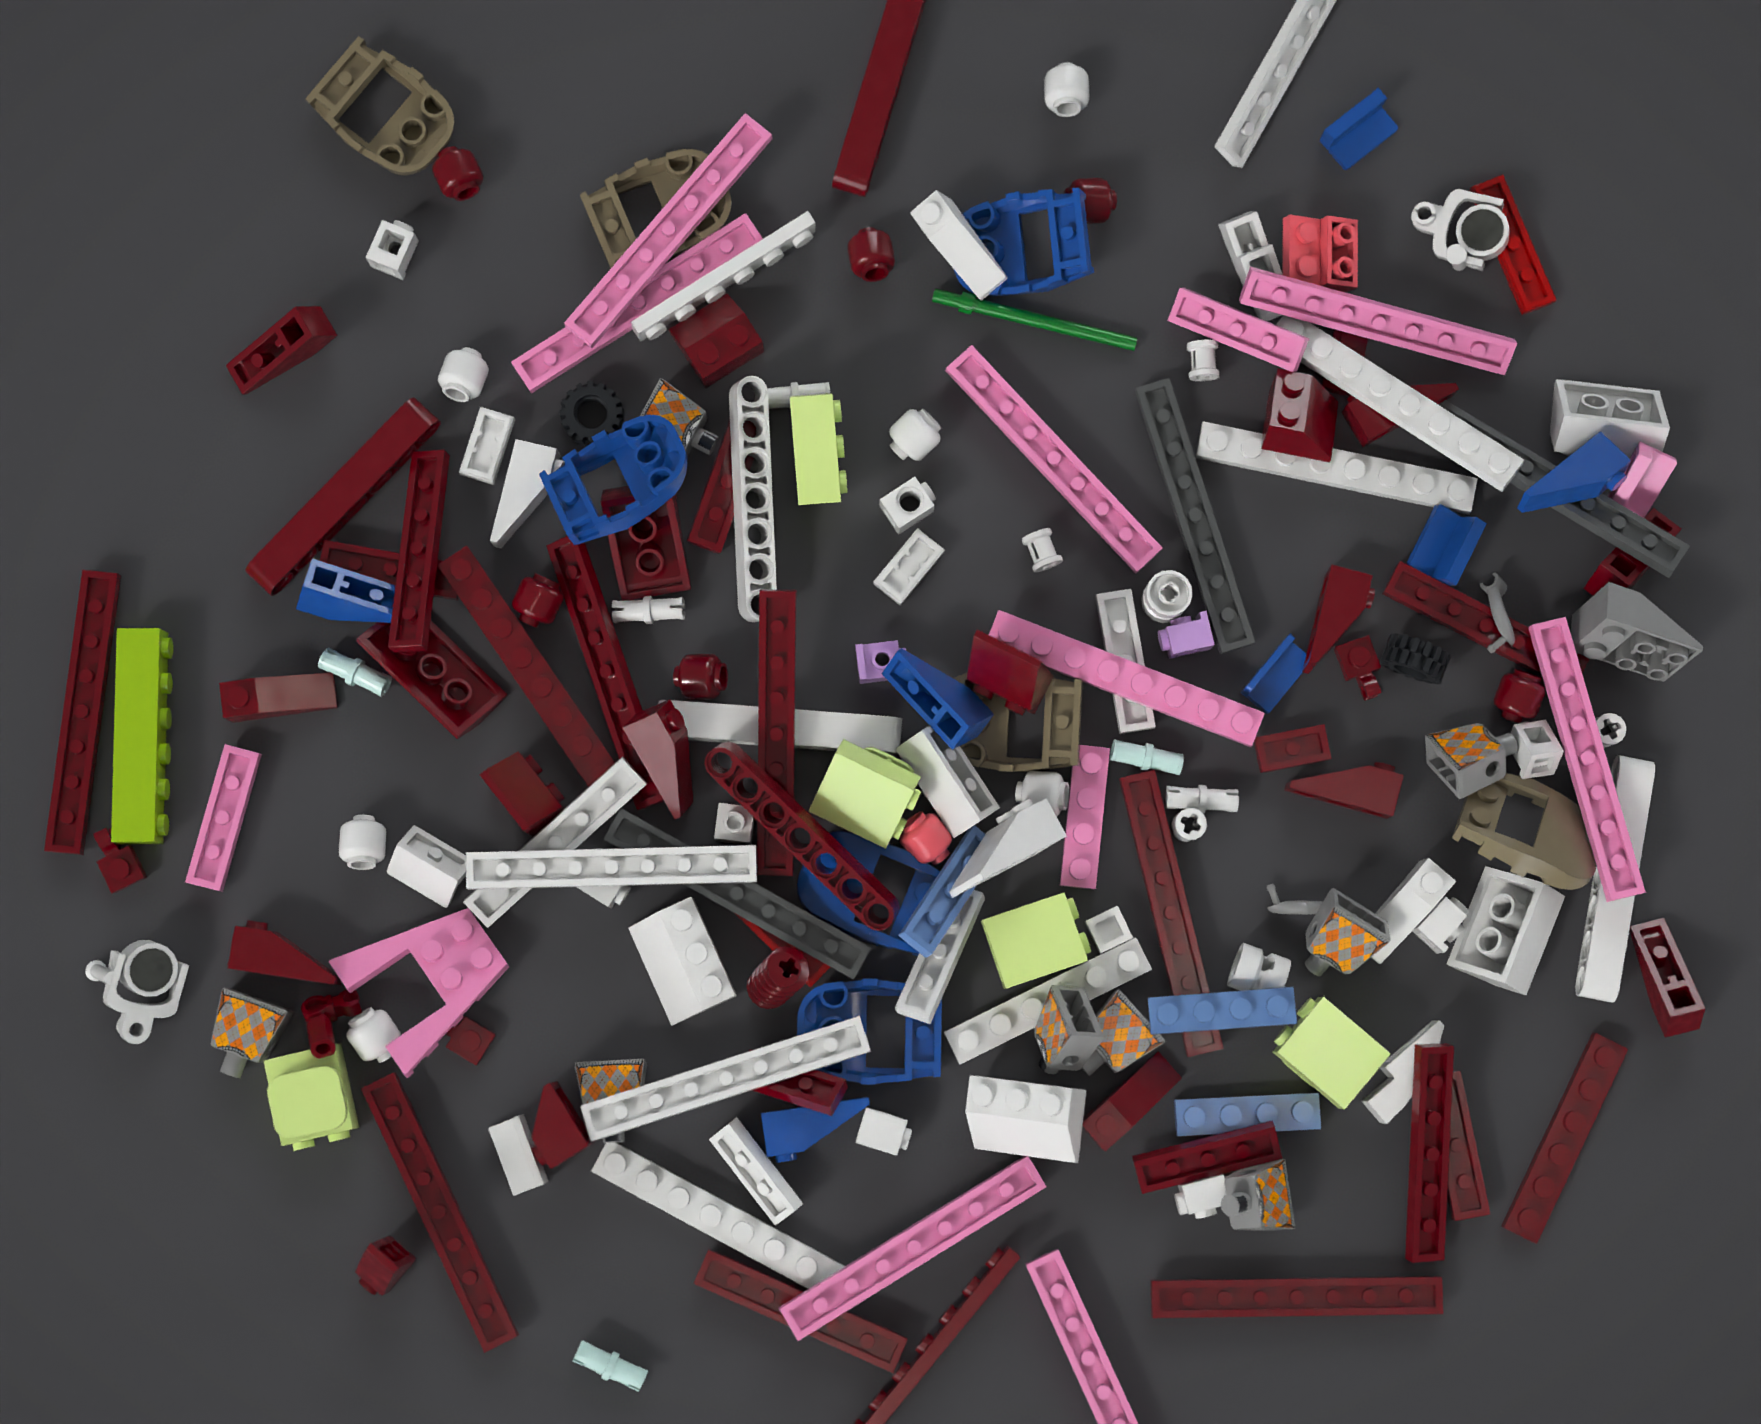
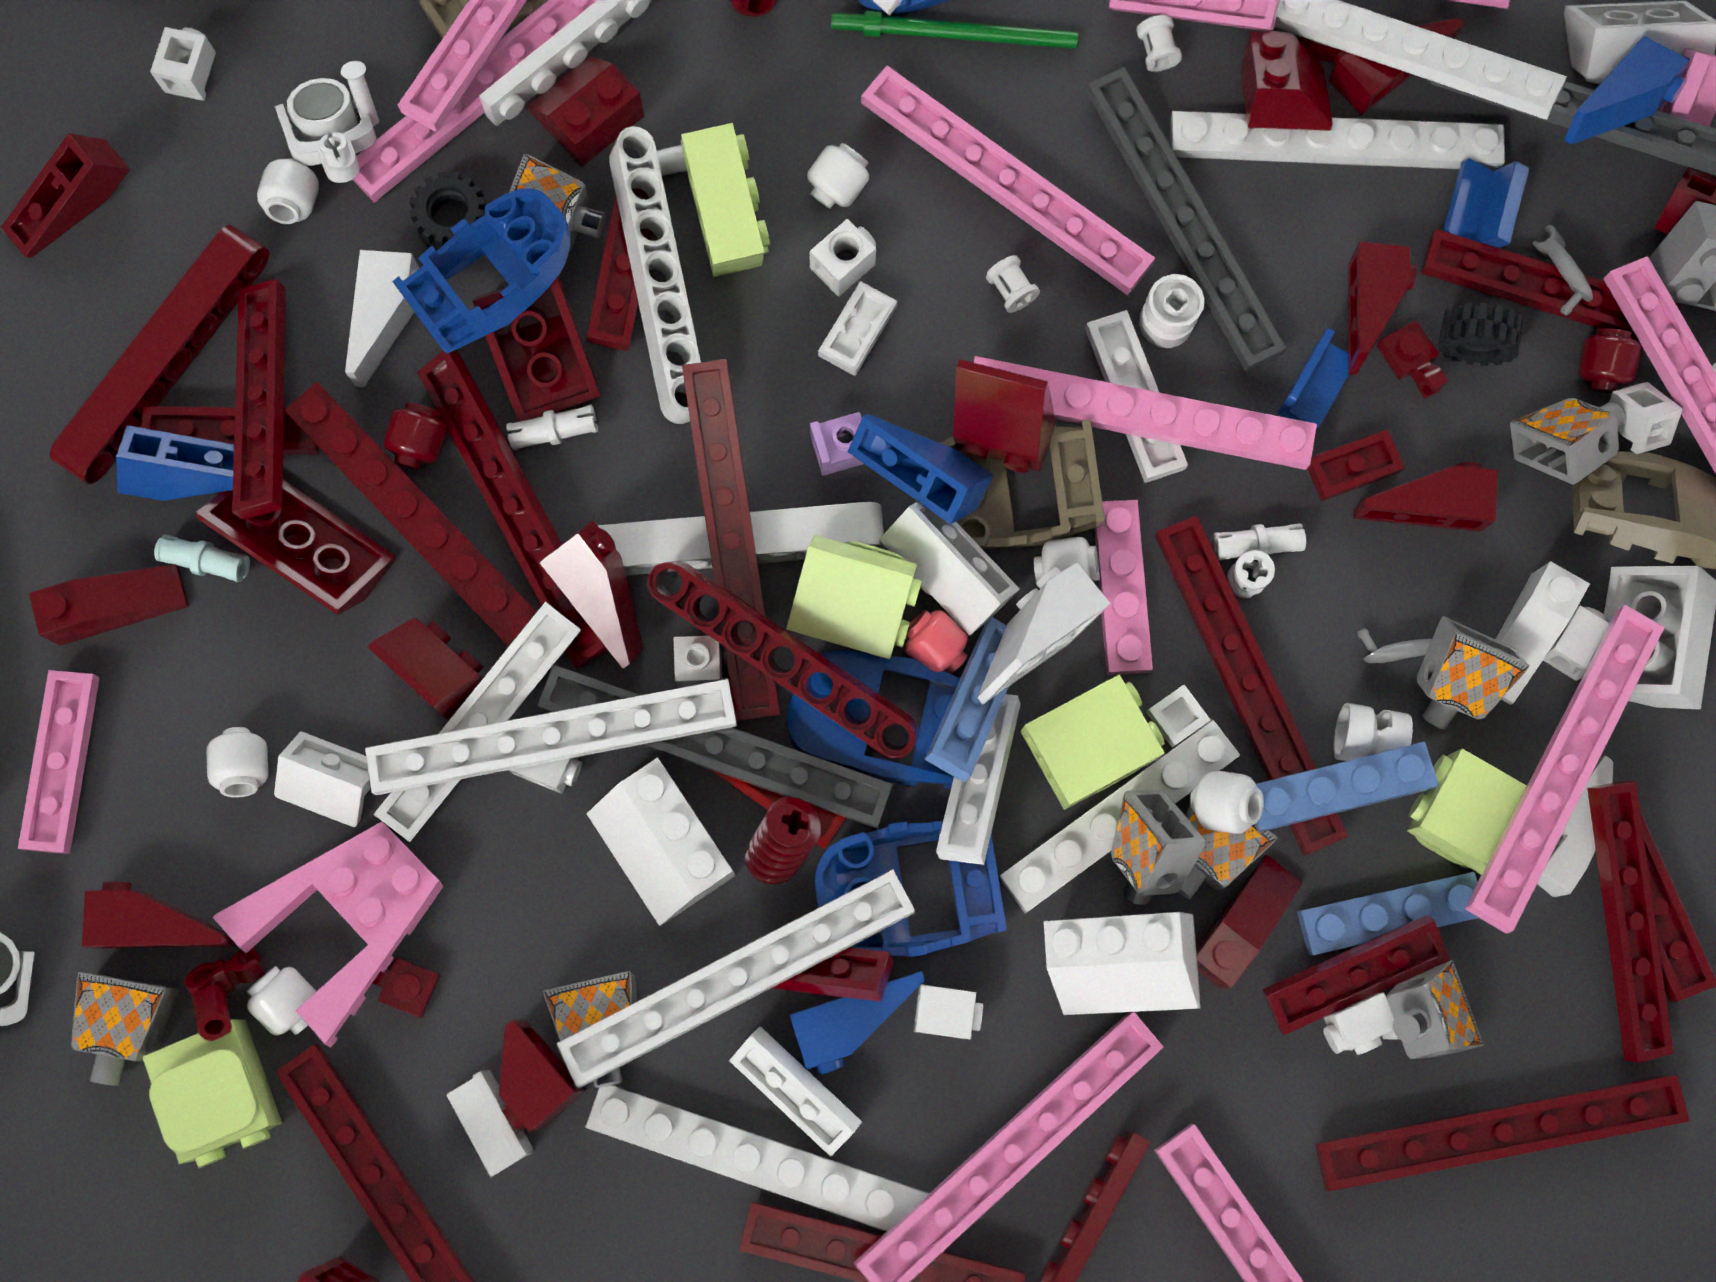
camera: 10 degrees left, 5 degrees down
(487, 445) = (328, 268): white plate -> none
(502, 319) = (329, 123): none -> white piece
(701, 676) = (628, 494): dark red head -> none
(1128, 1008) = (1227, 802): none -> white head
(1146, 757) = (1183, 503): light aqua pin -> none
(1186, 636) = (1204, 354): lavender brick -> none
(1400, 1025) = (1564, 770): none -> bright pink plate

